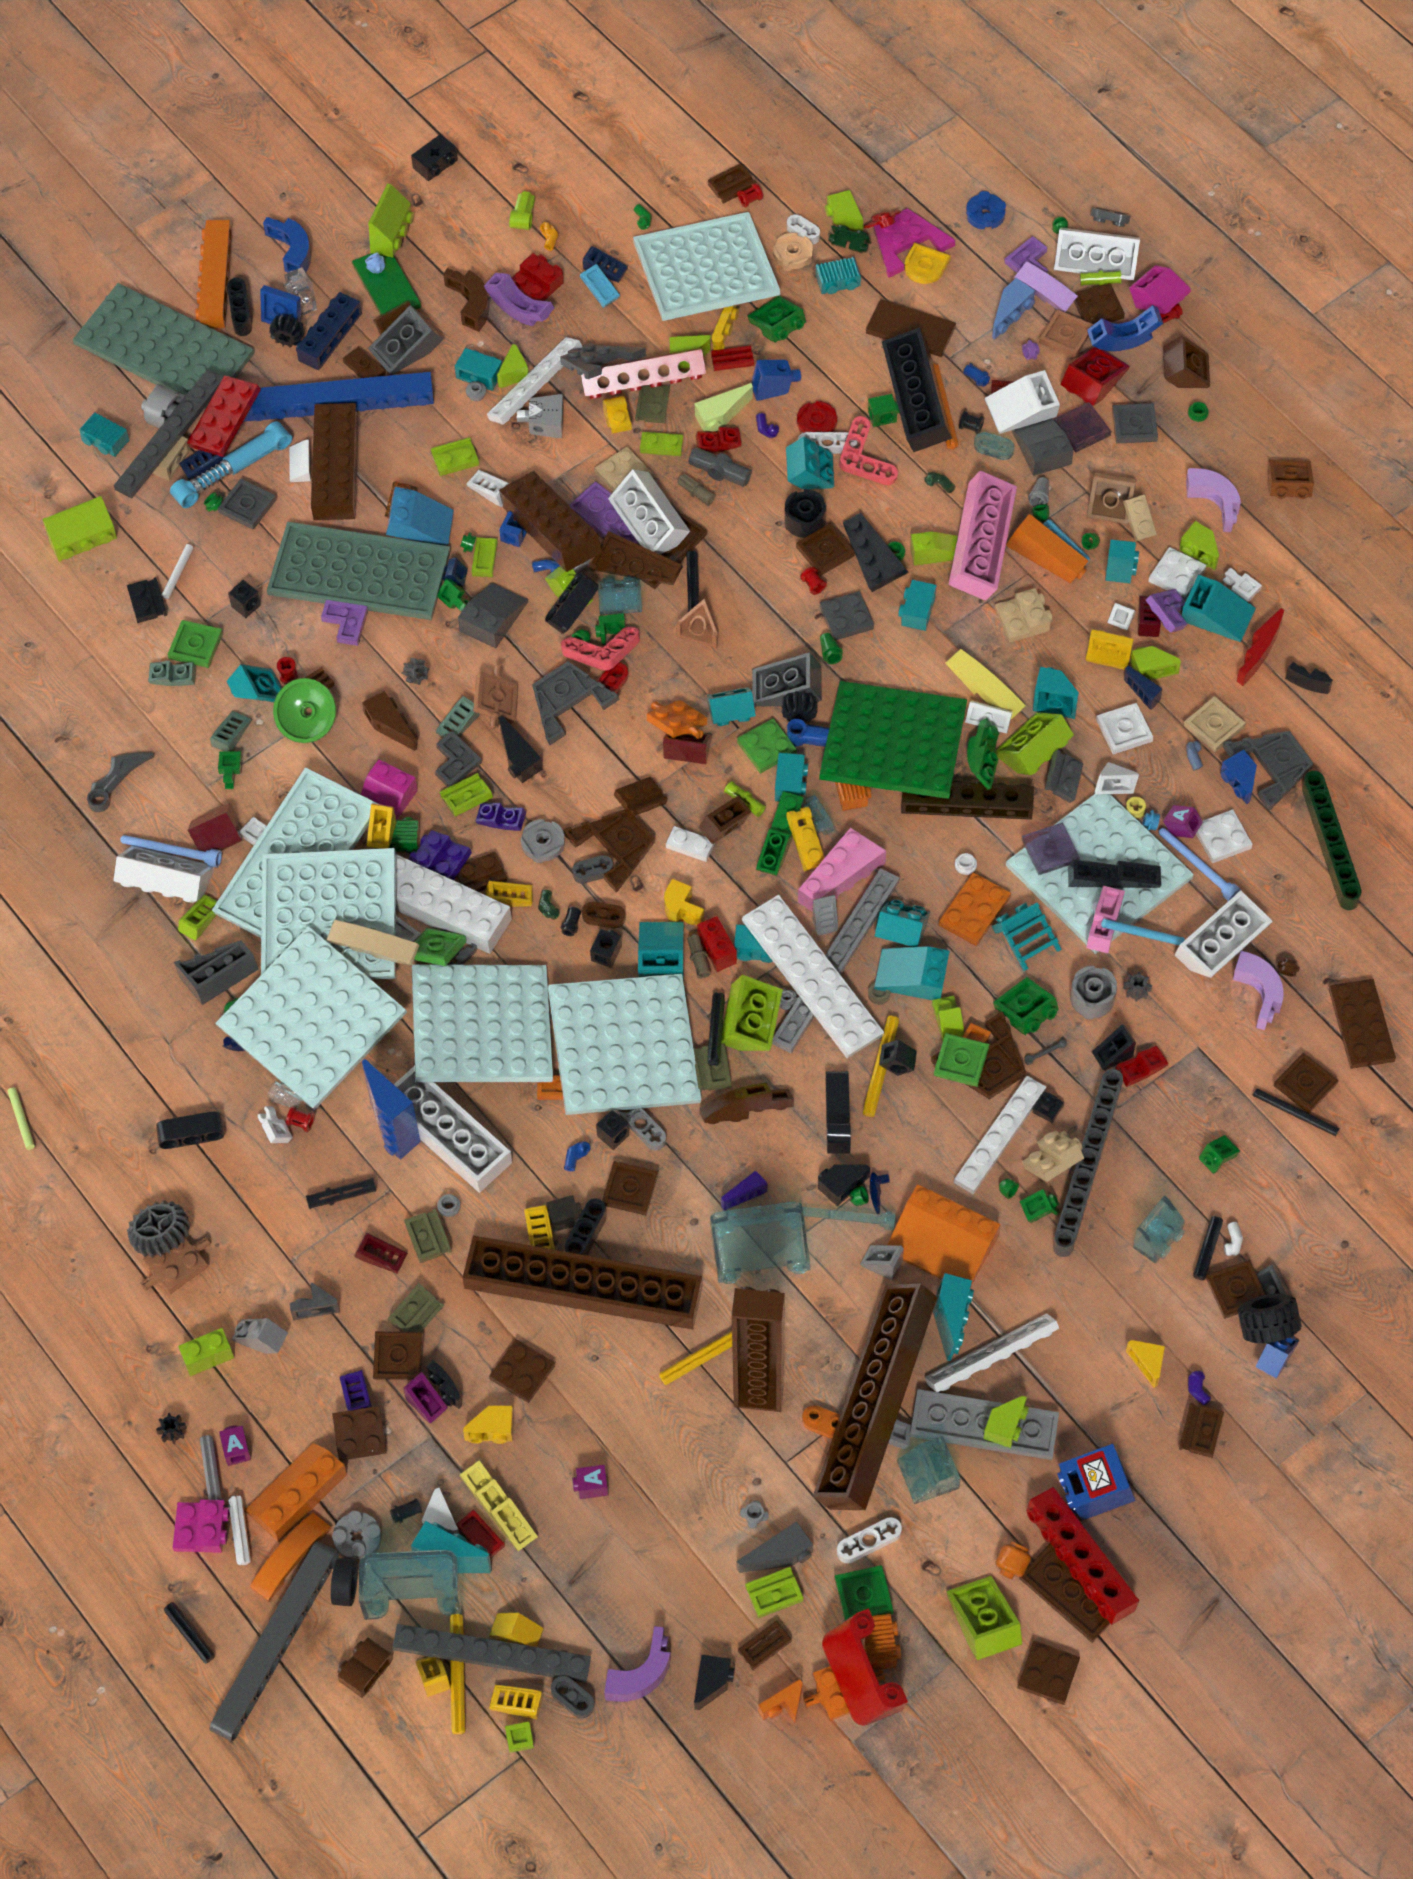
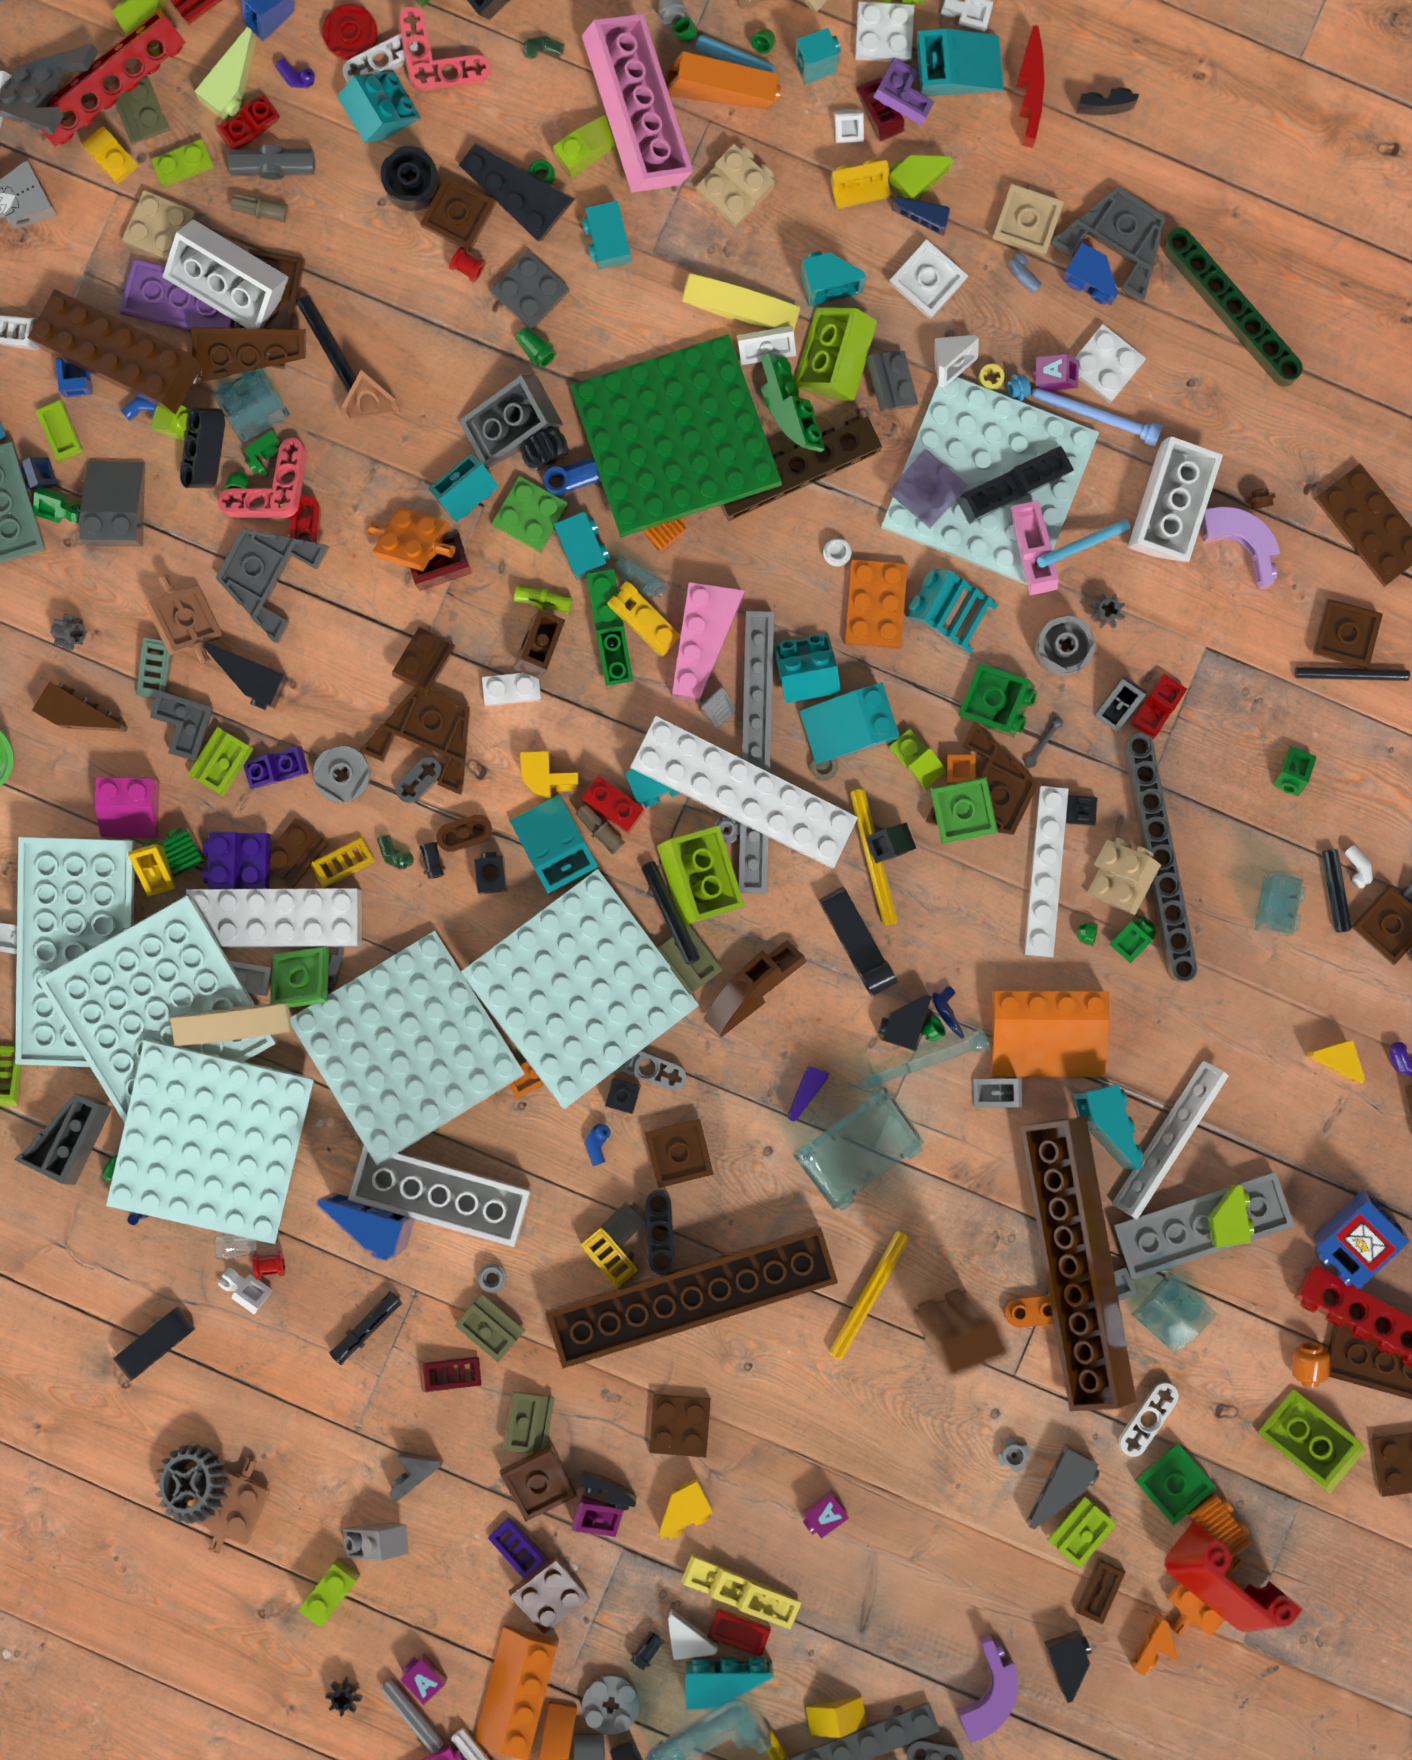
camera: 30 degrees left, 25 degrees up
(468, 542) = (29, 423): green plate -> none

